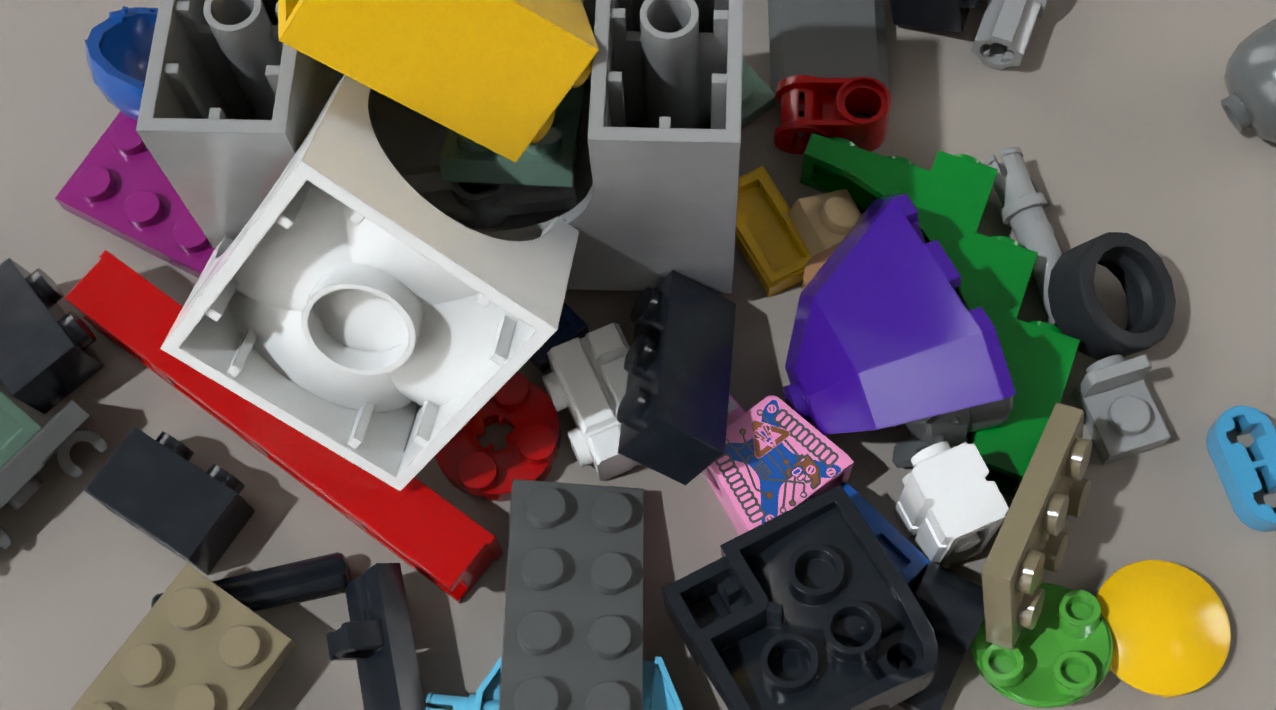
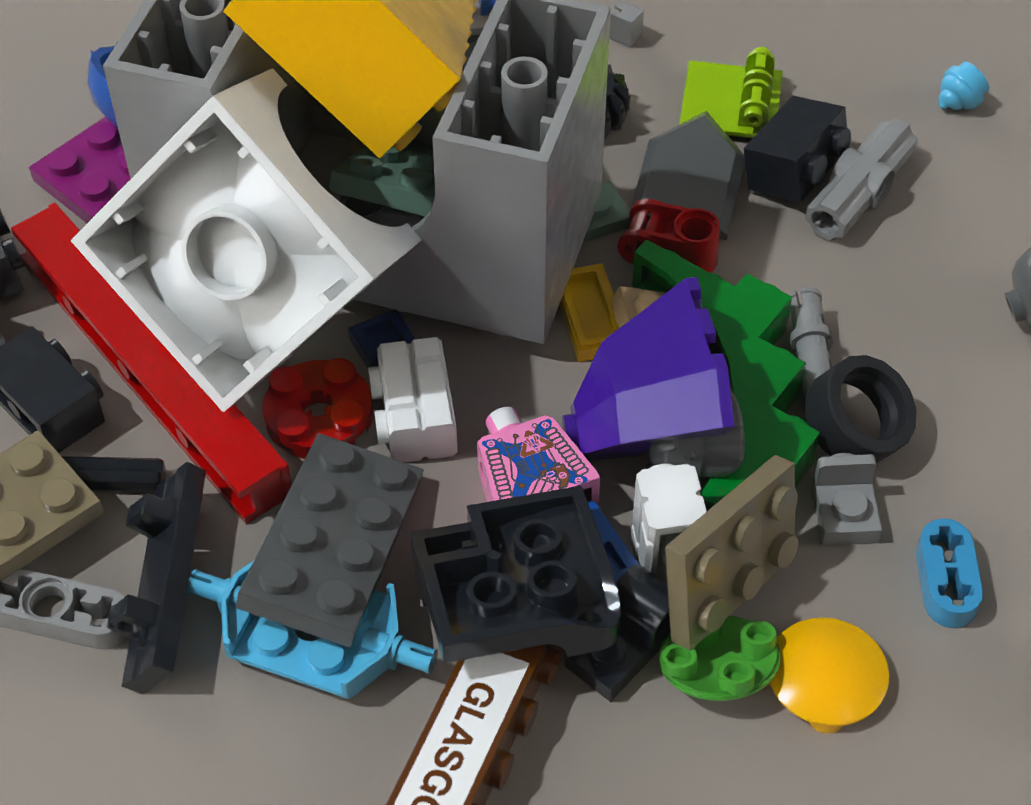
camera: 10 degrees right, 15 degrees down
(677, 378) = (472, 381): black brick -> none

